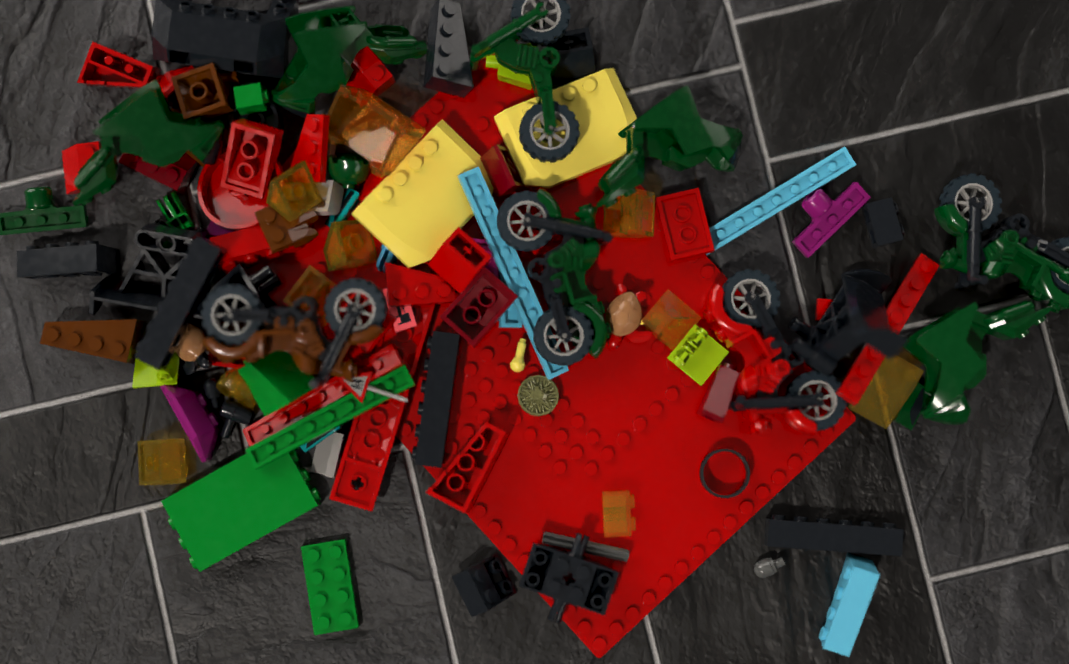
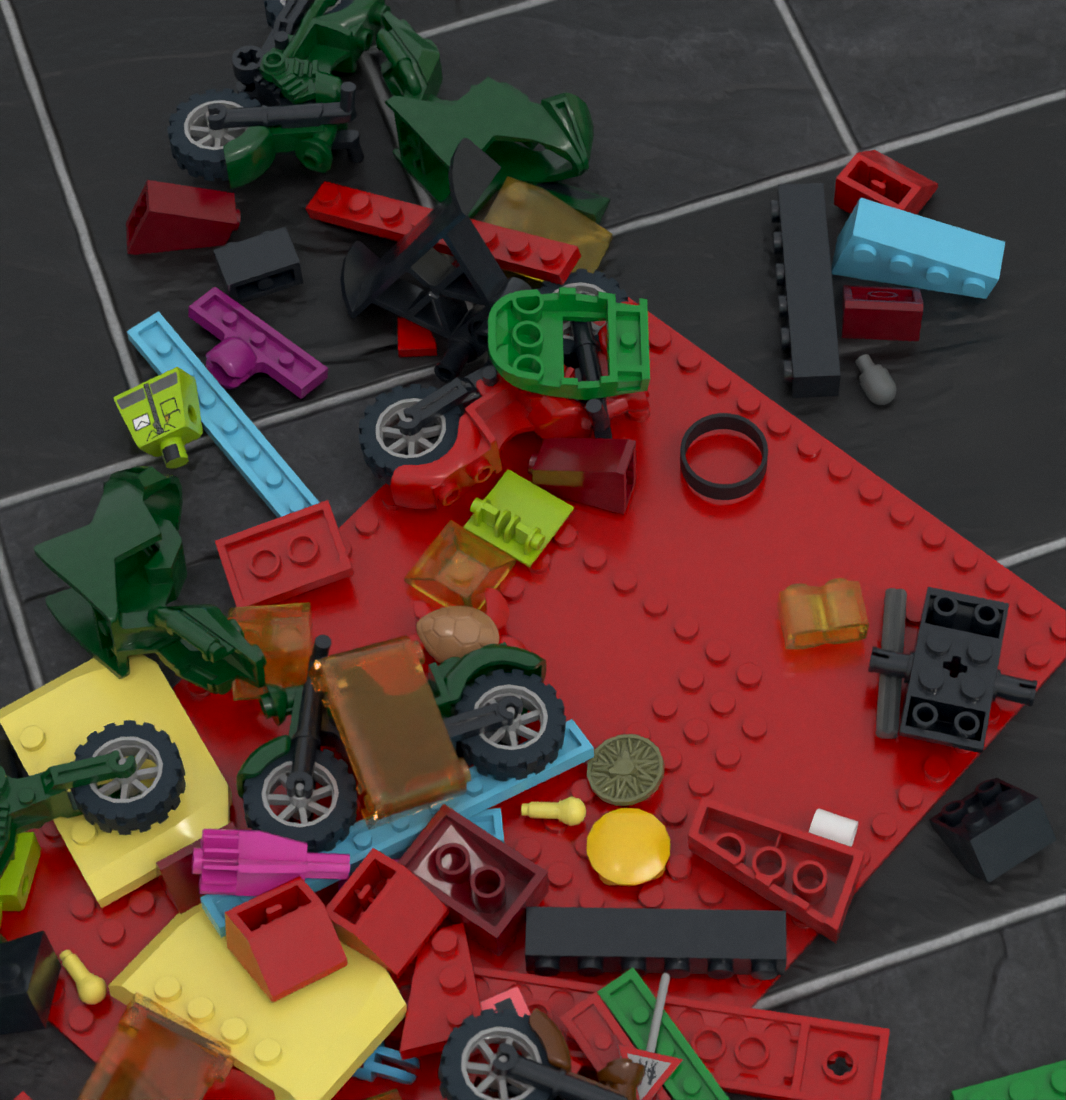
camera: 90 degrees left, 25 degrees down
(444, 207) = (284, 939): none -> red slope
(448, 111) = (90, 987): none -> light yellow piece
(487, 499) = (834, 827): none -> white beam
(488, 197) = (258, 861): none -> dark pink piece
(494, 392) = (628, 847): none -> yellow dish
(555, 269) = (391, 728): none -> clear orange windscreen
(783, 163) = (163, 415): none -> lime torso
(788, 368) = (528, 342): none -> green slope
(816, 578) = (881, 313): none -> dark red slope
(898, 592) = (882, 181): none -> red slope
(918, 180) = (180, 218): none -> dark red slope

